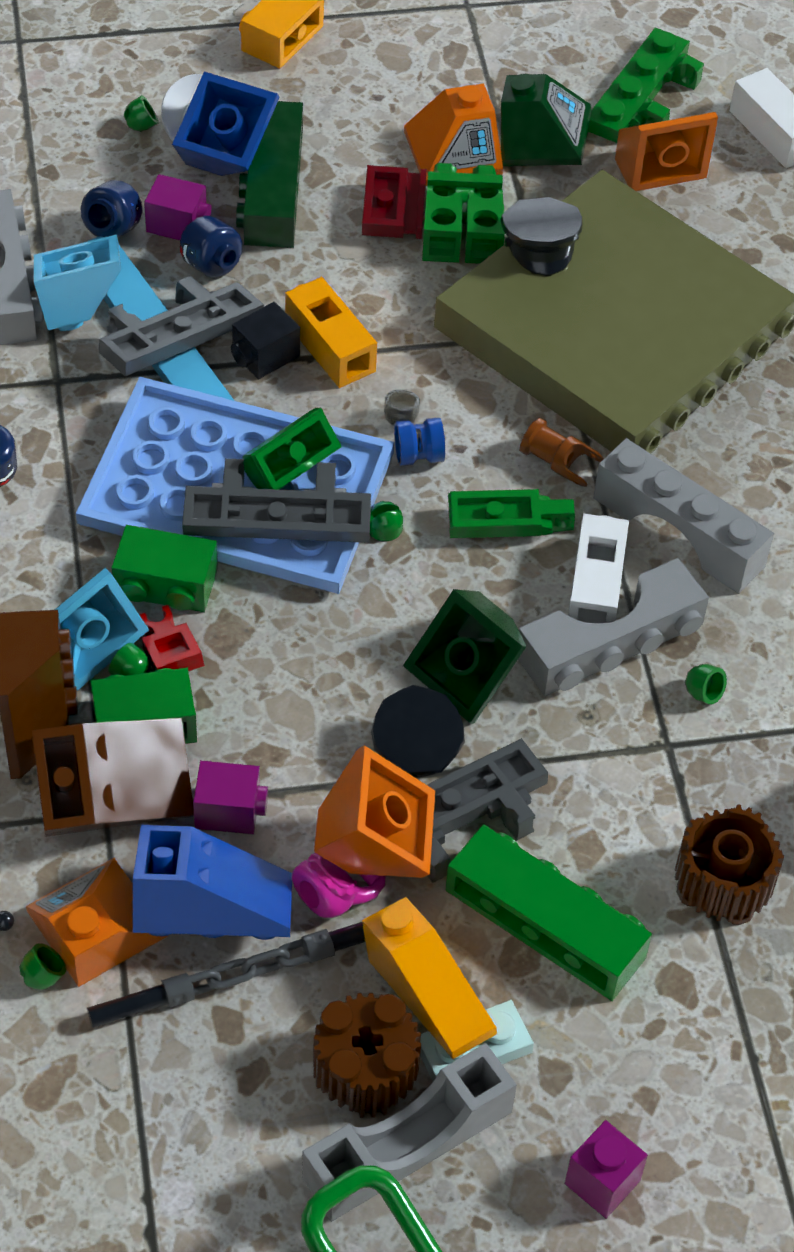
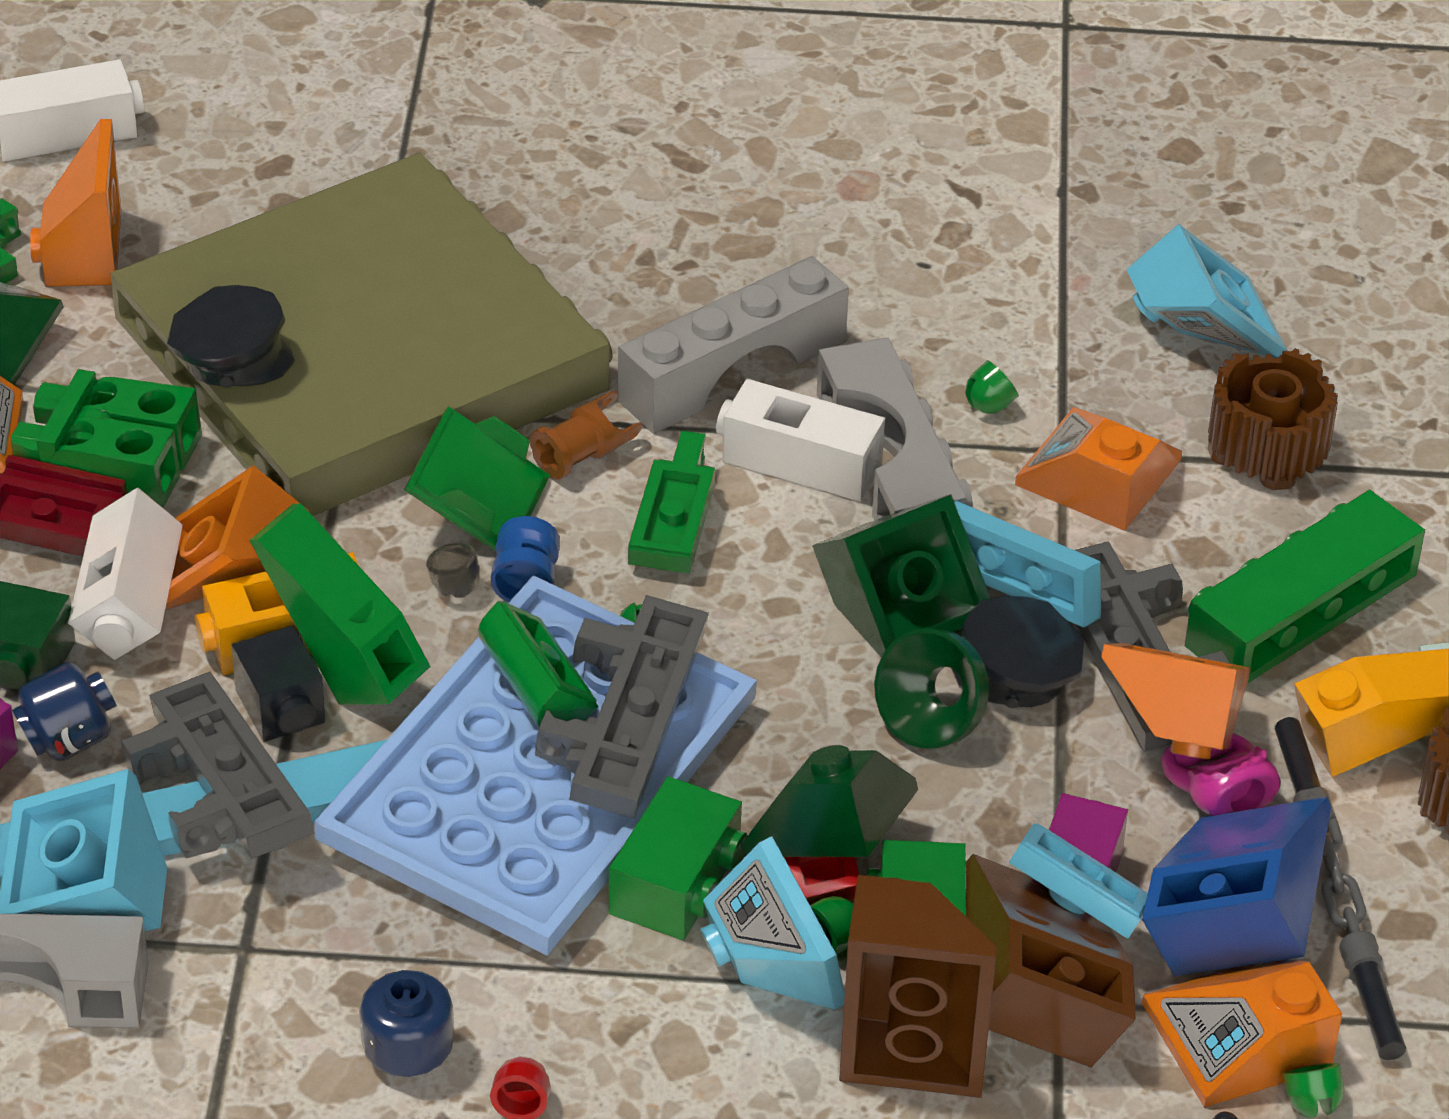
camera: 75 degrees left, 10 degrees down
(170, 780) = (1079, 880): none -> medium azure plate
(215, 637) = (835, 805): none -> dark green slope
(303, 336) = (339, 611): none -> green slope
(331, 244) = (125, 574): none -> white brick
(357, 684) = (908, 693): none -> dark green piece
(383, 291) = (218, 532): none -> orange slope
(485, 400) = (477, 475): none -> green piece
(496, 716) = (1033, 566): none -> medium azure plate
(652, 769) = (1099, 468): none -> orange slope

